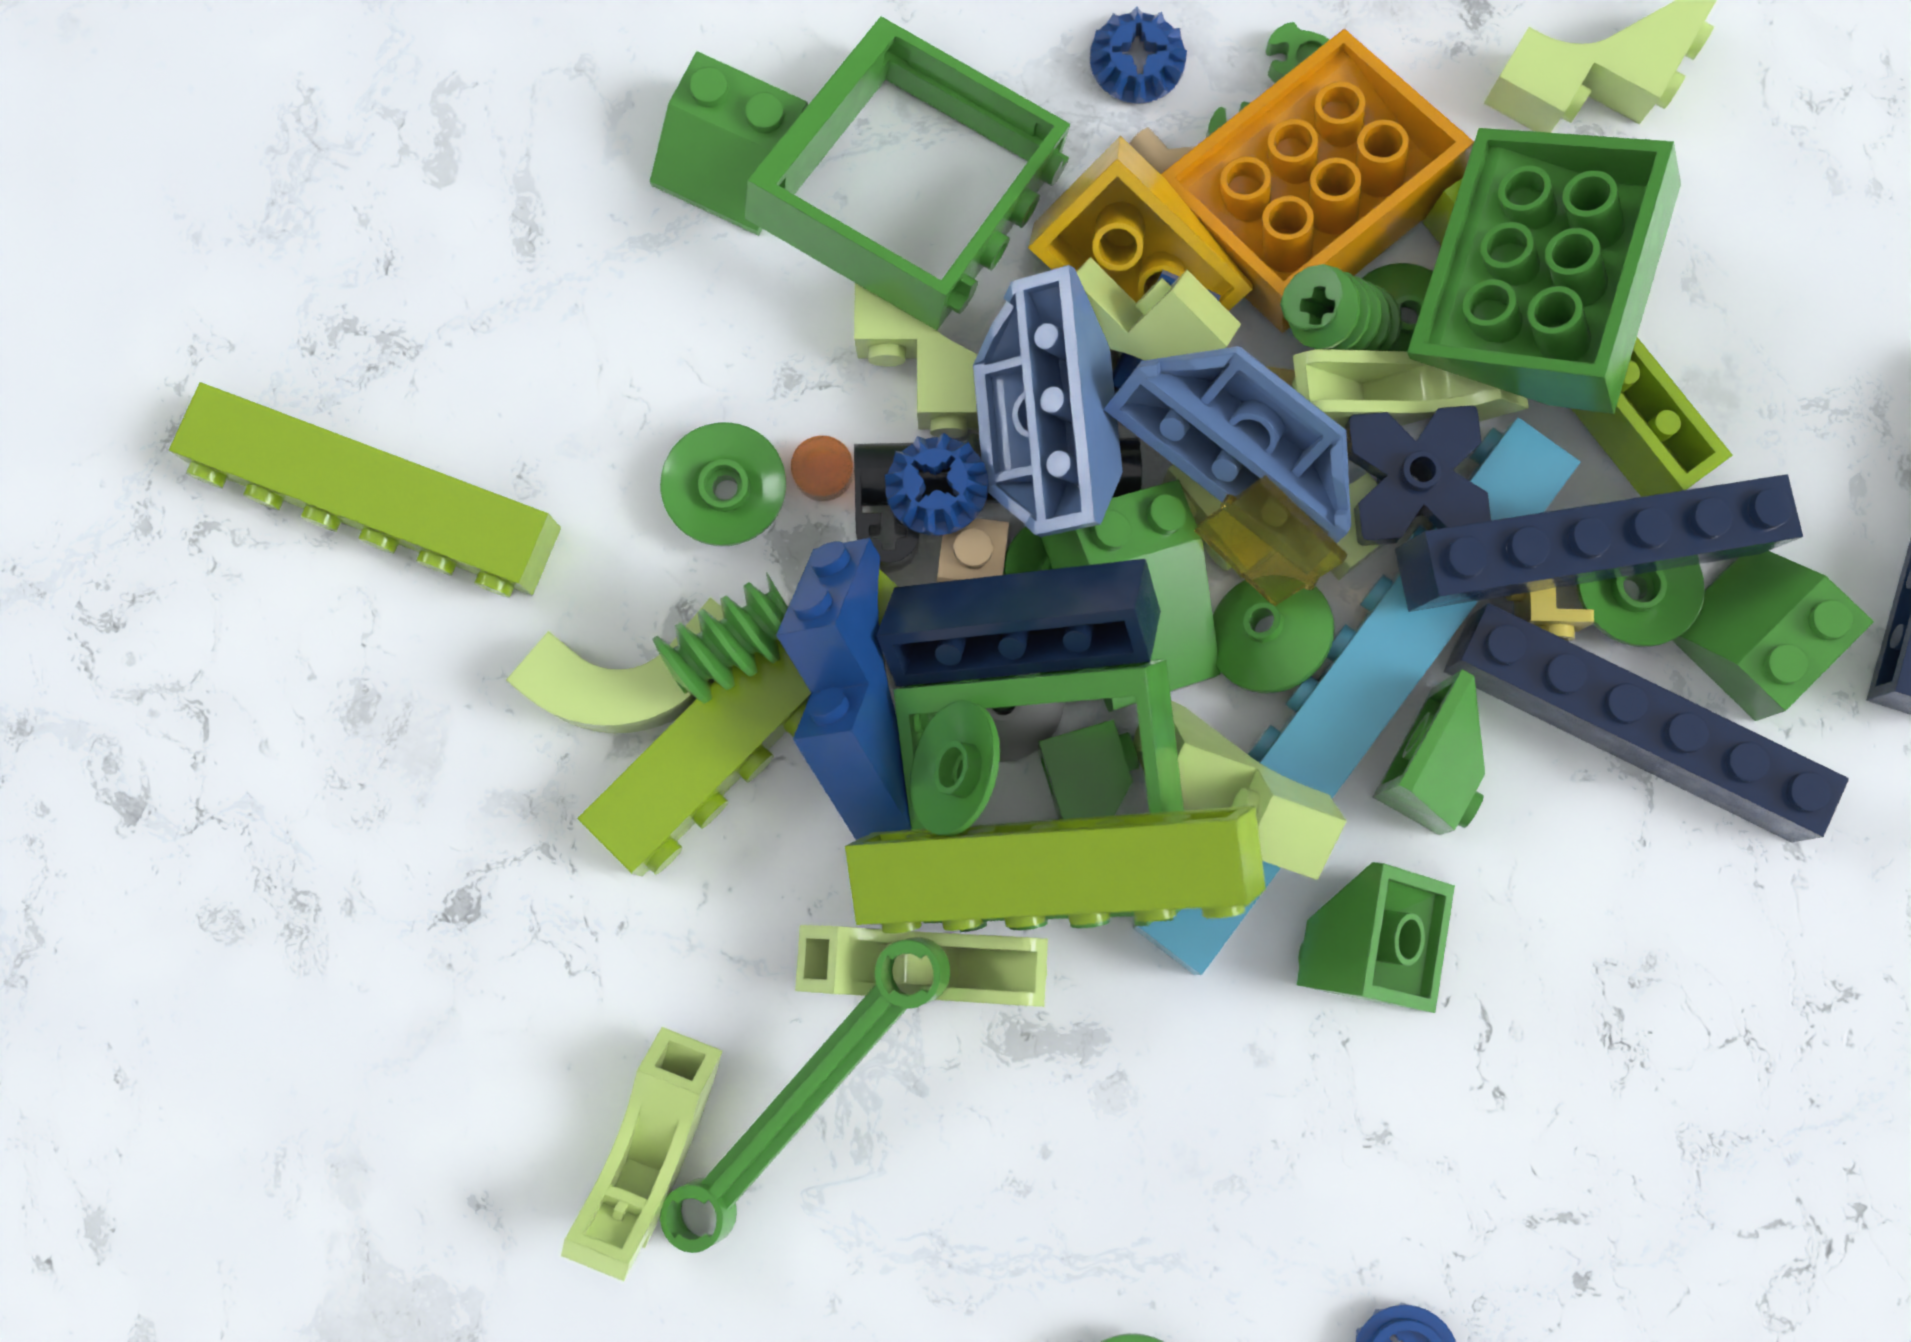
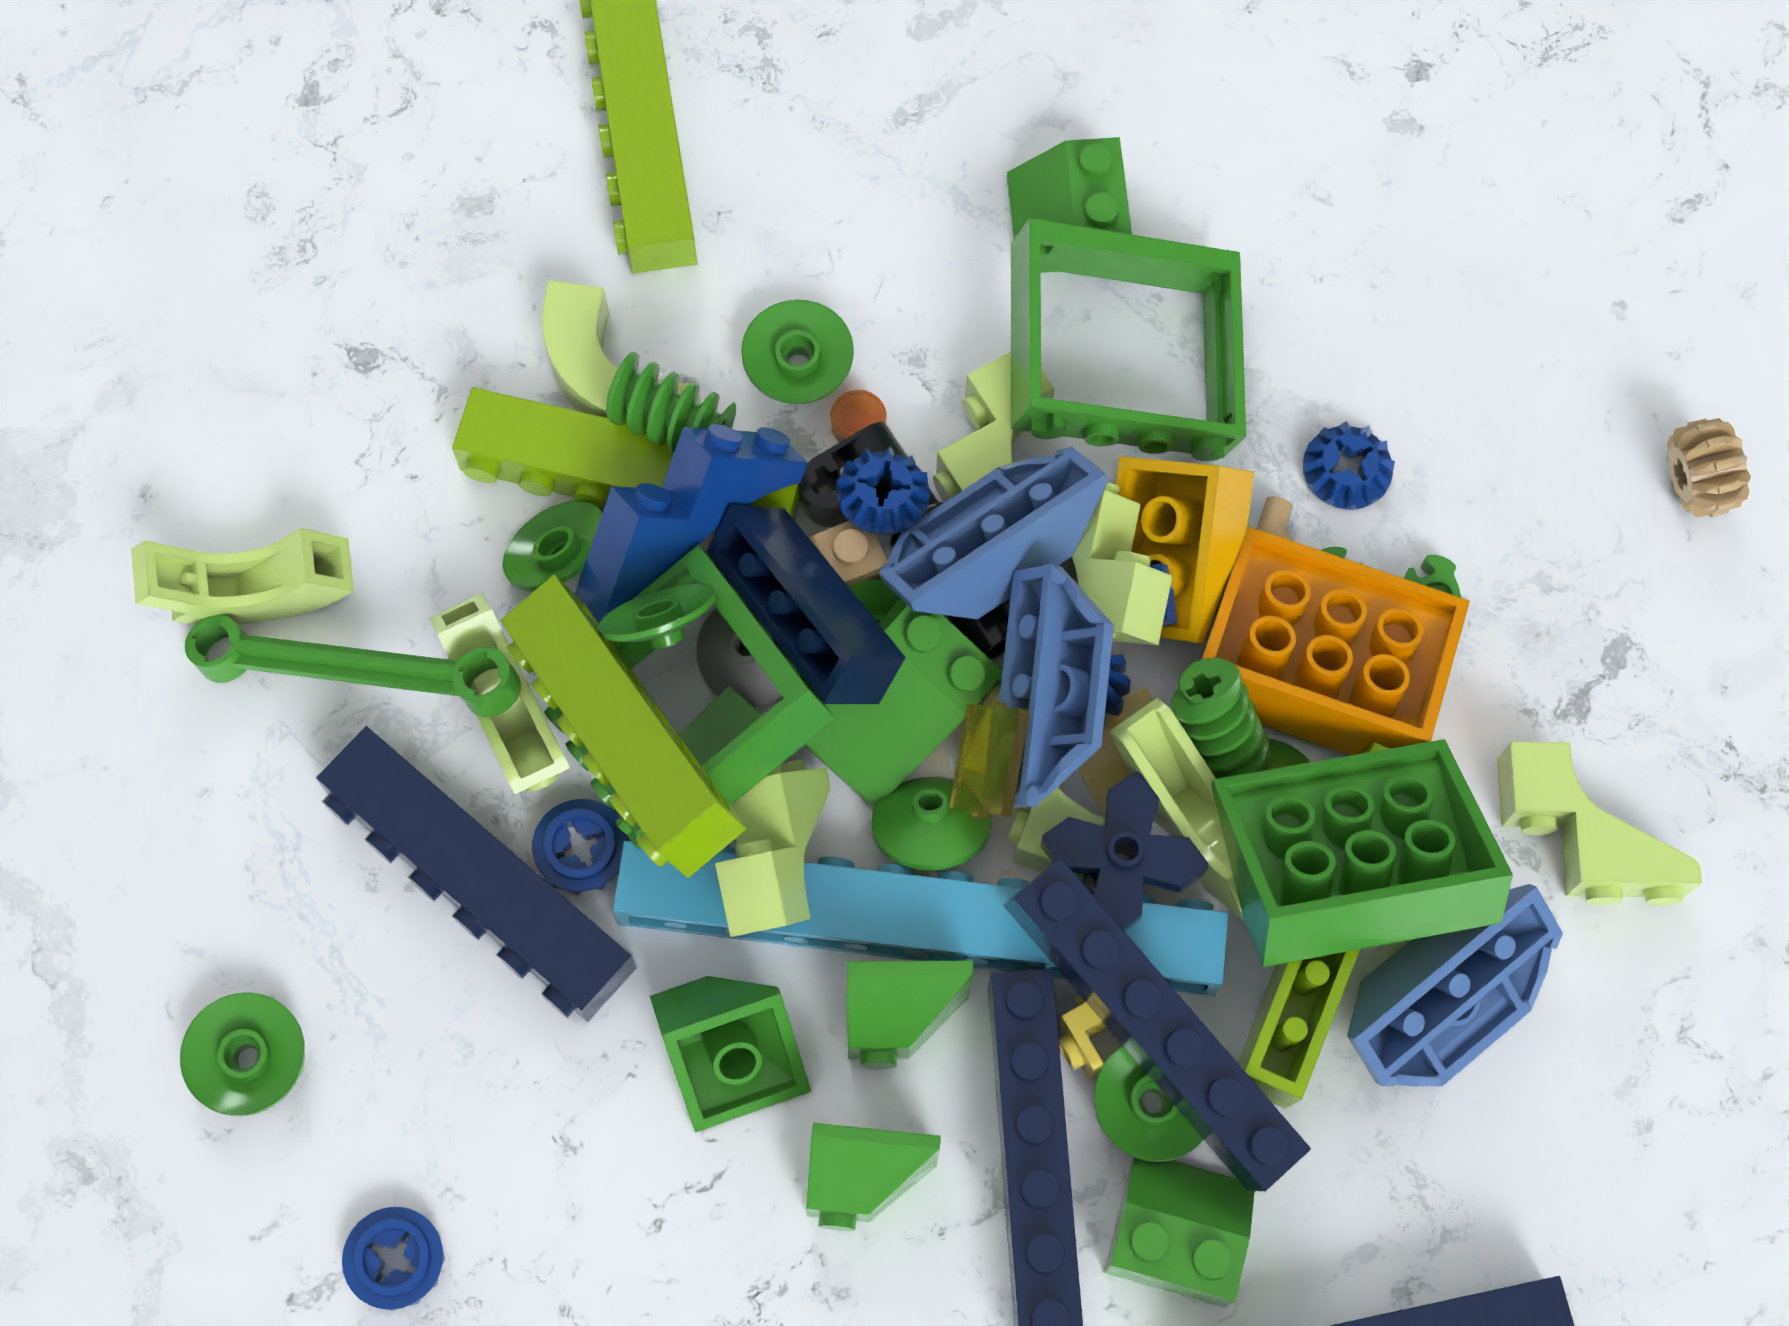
camera: 55 degrees right, 10 degrees down
(772, 834) = (551, 544): none -> bright green dish
(1079, 1085) = (476, 874): none -> dark blue brick
(1124, 993) = (553, 840): none -> blue gear
(1573, 878) = (863, 1171): none -> bright green slope
(1697, 296) = (1453, 994): none -> medium blue wedge

